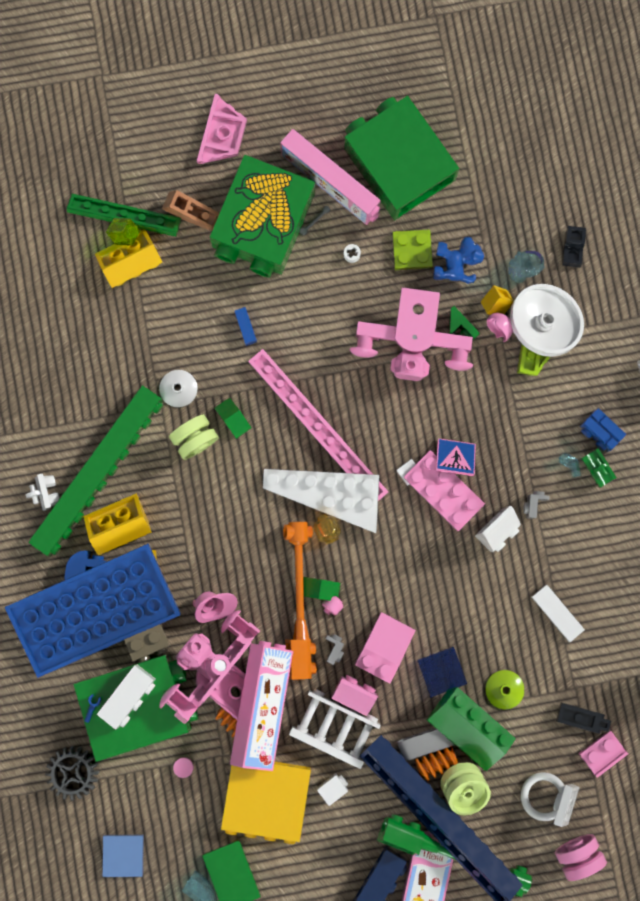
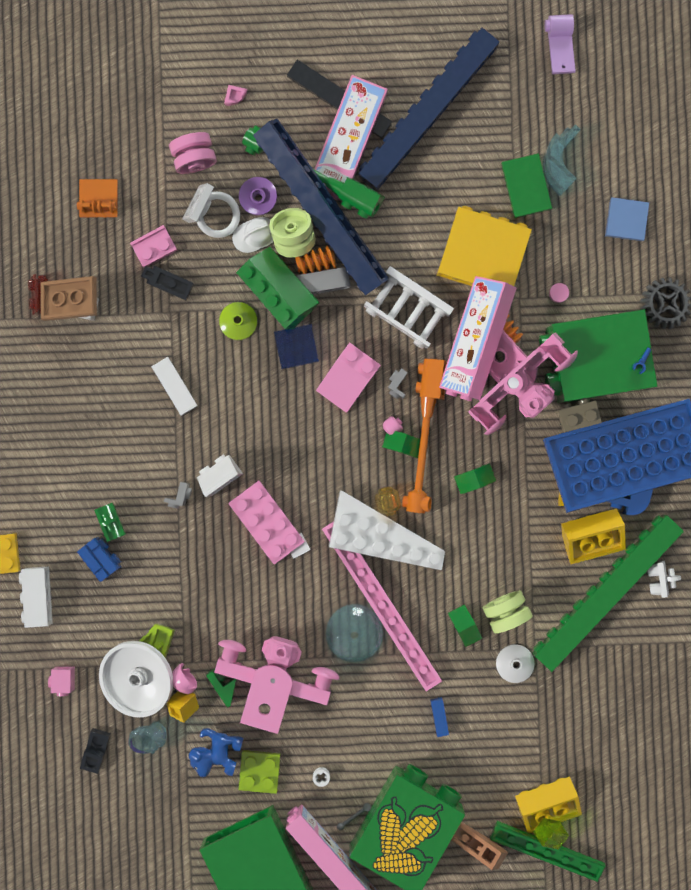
camera: 170 degrees left, 5 degrees up
(127, 697) = (607, 365): white brick -> none
(214, 606) = (509, 441): bright pink piece -> none
(242, 564) = (475, 478): none -> green slope
(333, 788) = (418, 251): white brick -> none
(340, 408) = (354, 619): none -> clear light blue dish
(354, 695) = (384, 336): bright pink slope -> none
(455, 457) = (249, 553): piece -> none
(504, 780) = (252, 235): none -> white piece
(513, 830) = (257, 186): none -> medium lavender dish
(572, 463) = (135, 531): clear light blue arm -> none
(618, 308) = (62, 680): none -> bright pink brick

